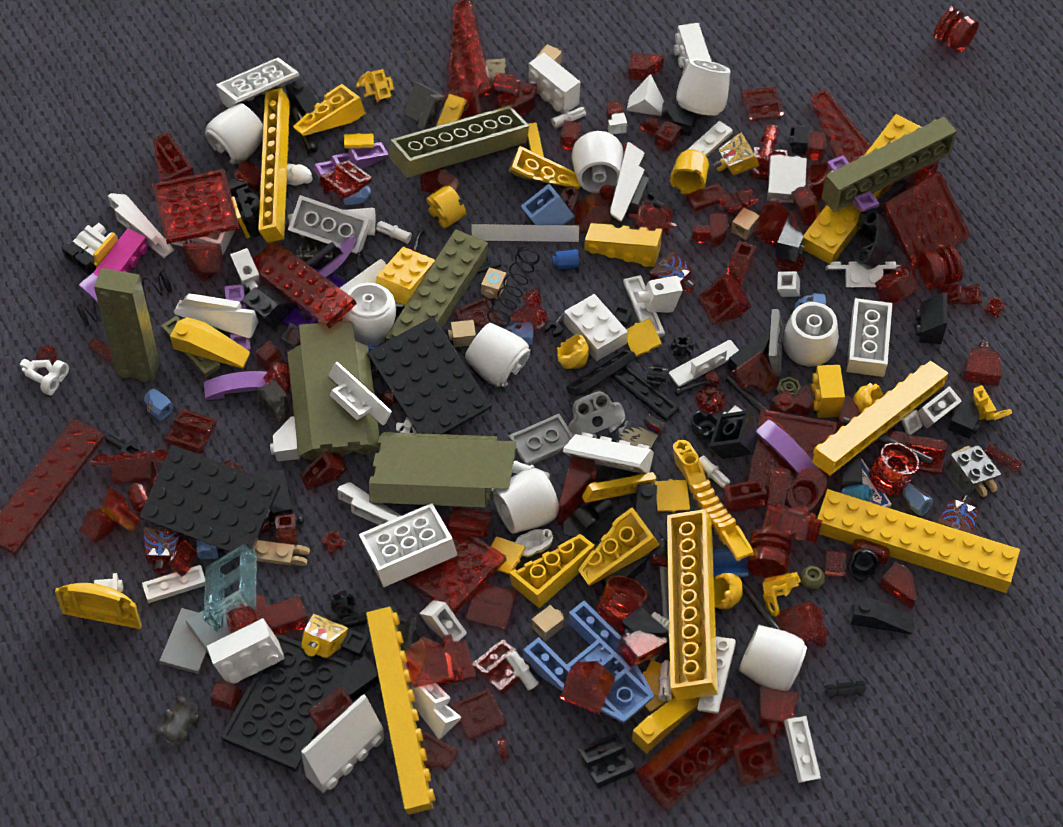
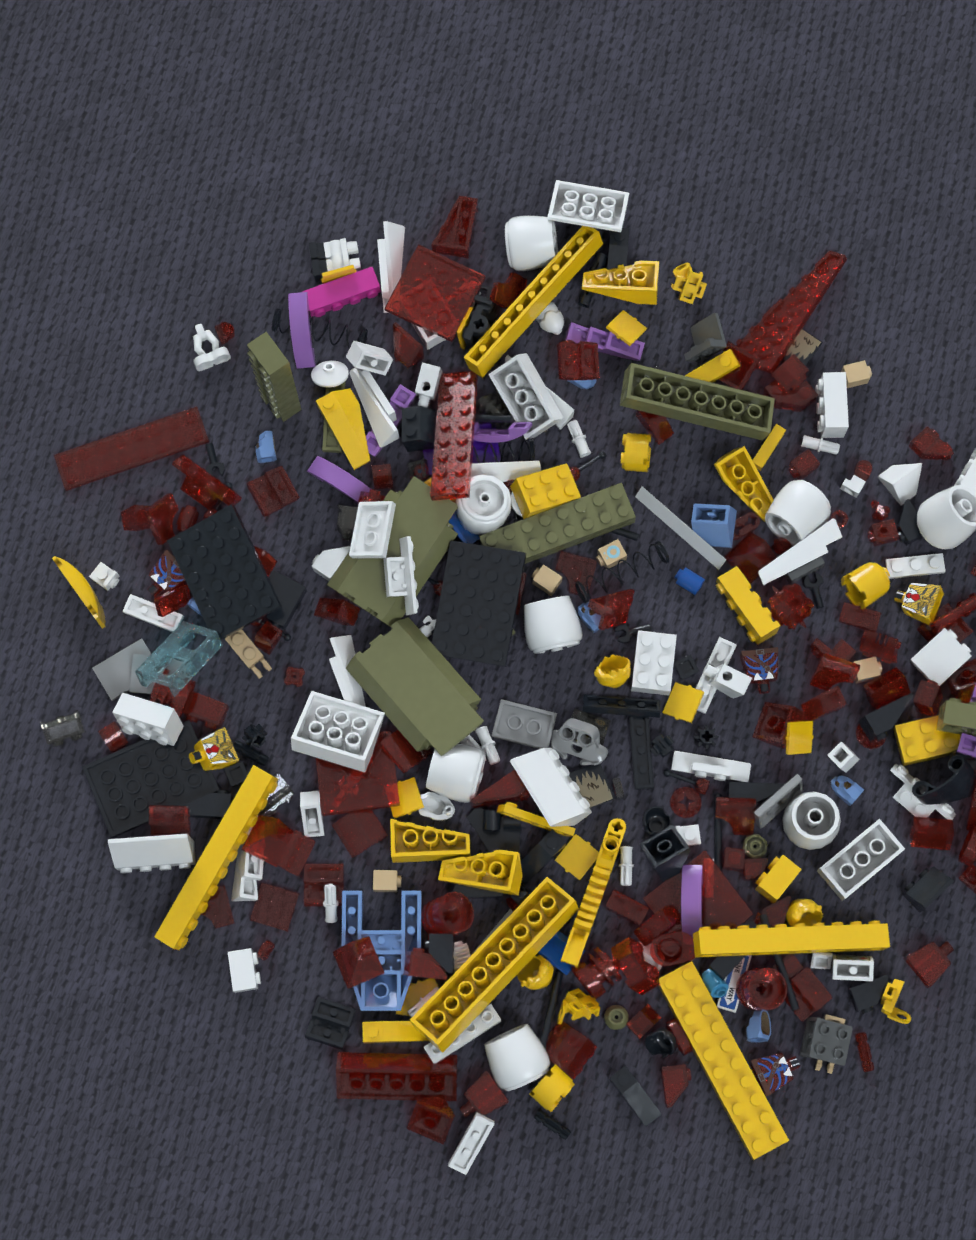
camera: 45 degrees right, 20 degrees up
(163, 320) = (329, 374): none -> white dish
(184, 284) = (369, 358): none -> white brick
(301, 382) = (372, 529): none -> white plate
(500, 777) = (243, 970): none -> white brick
(725, 236) = (833, 671): none -> clear red tile
(746, 294) = (799, 737): none -> yellow piece
(820, 658) = (551, 1088): none -> yellow brick

